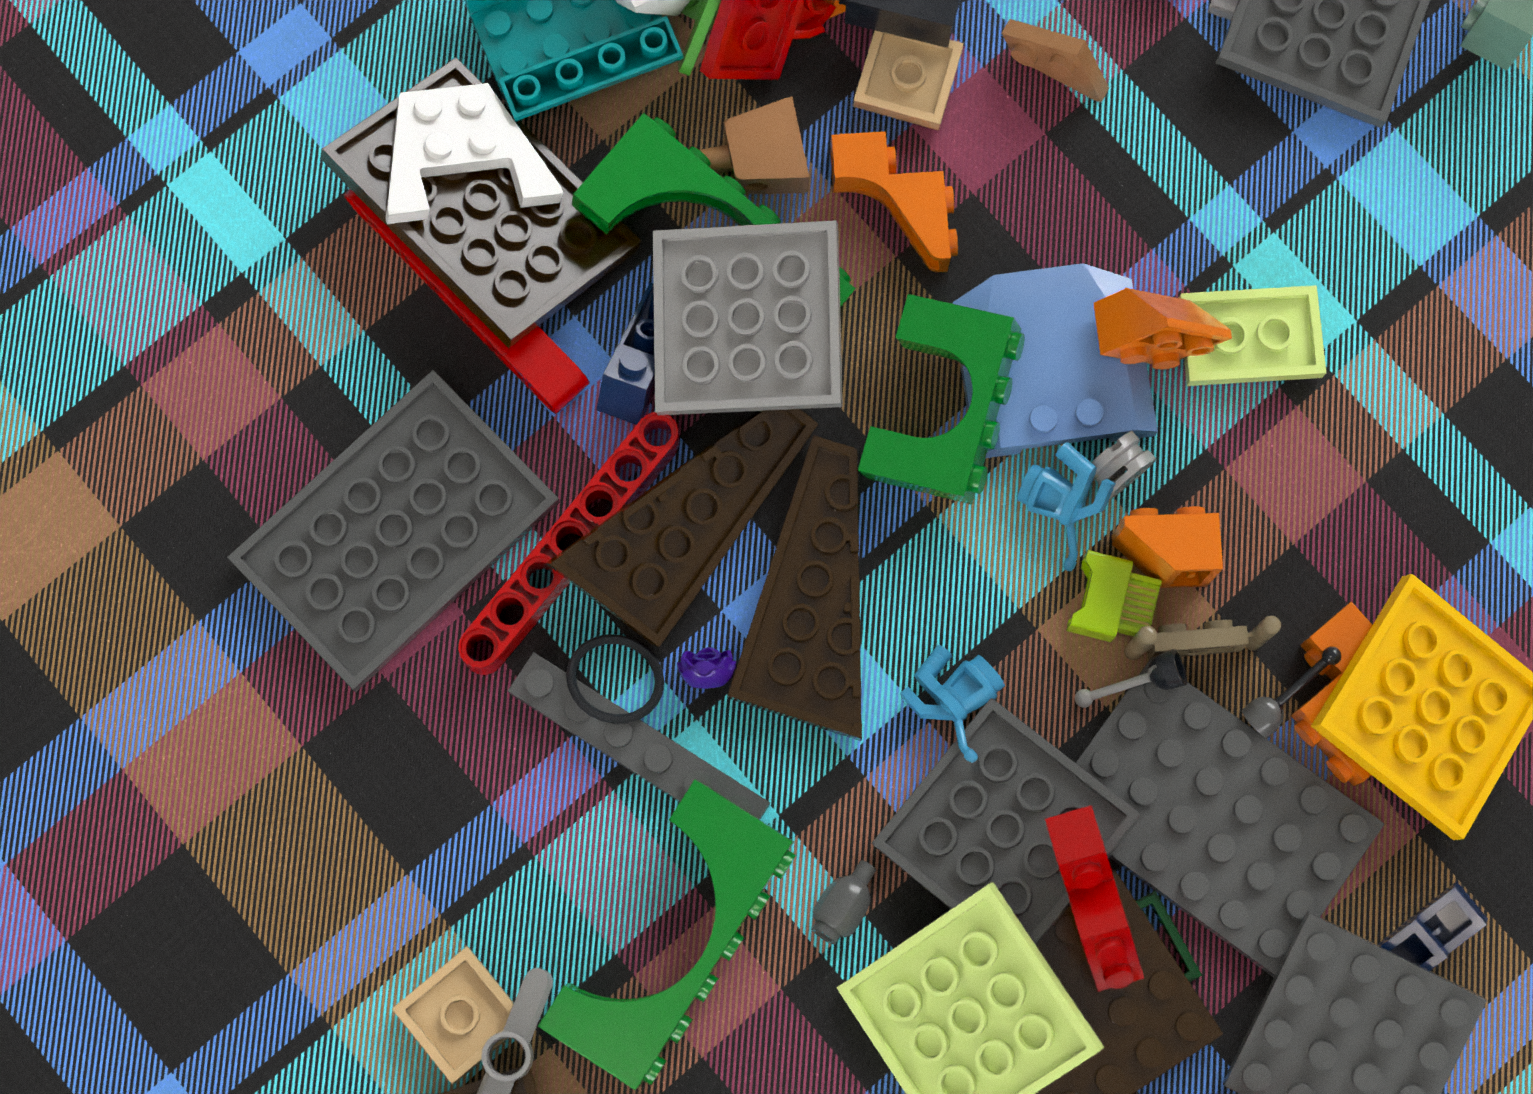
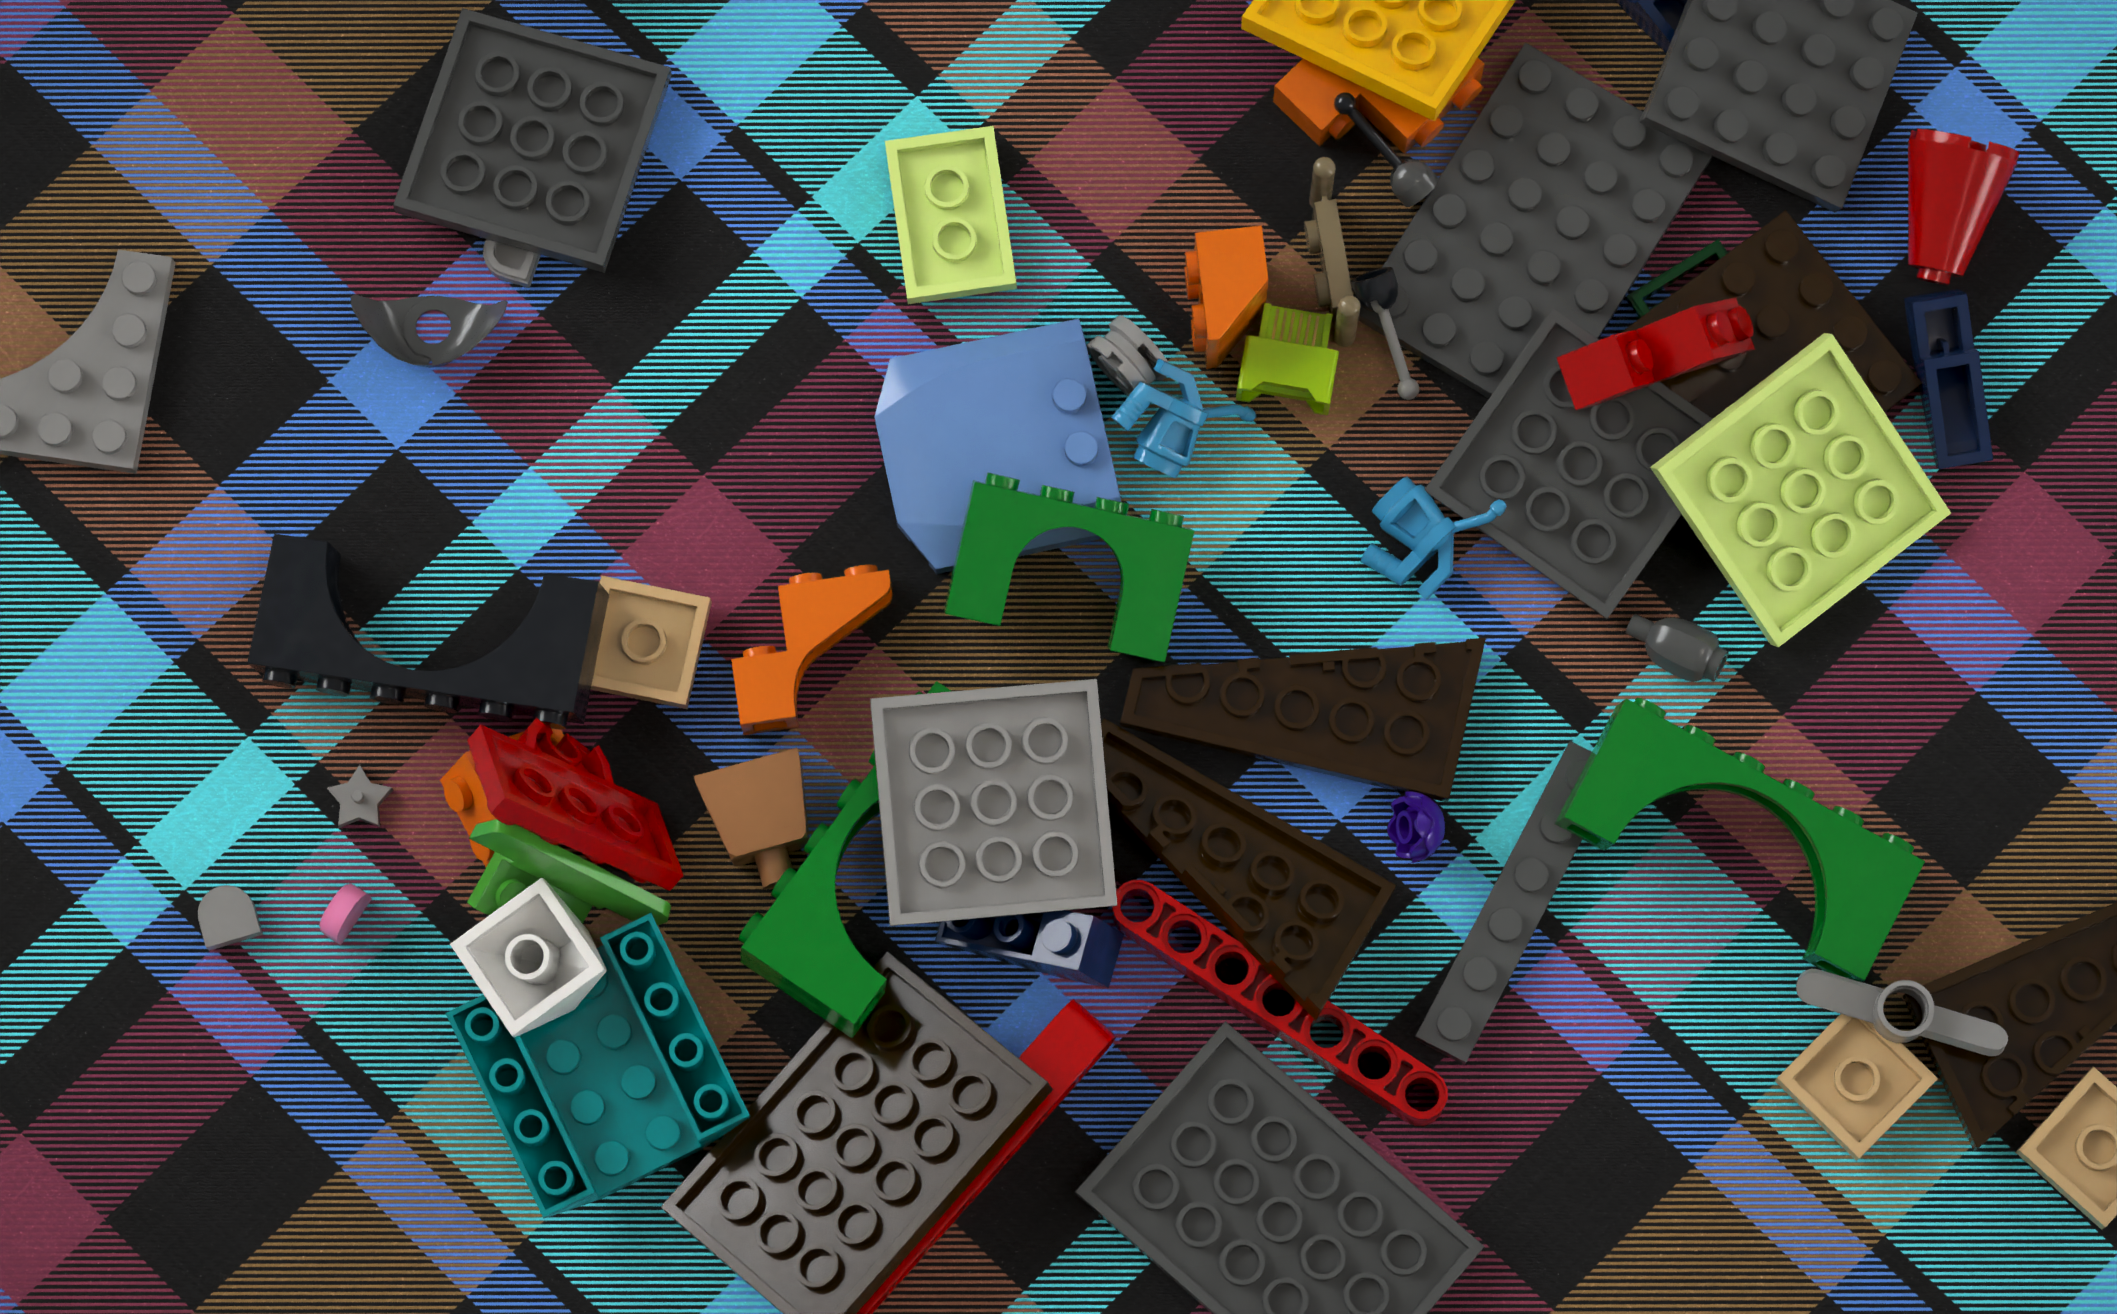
camera: 90 degrees left, 0 degrees up
(460, 133) = (774, 1185): white wing -> none
(608, 717) = (1461, 978): black tyre -> none
(1057, 56) = (614, 459): medium nougat wing -> none
(1155, 328) = (963, 319): orange slope -> none

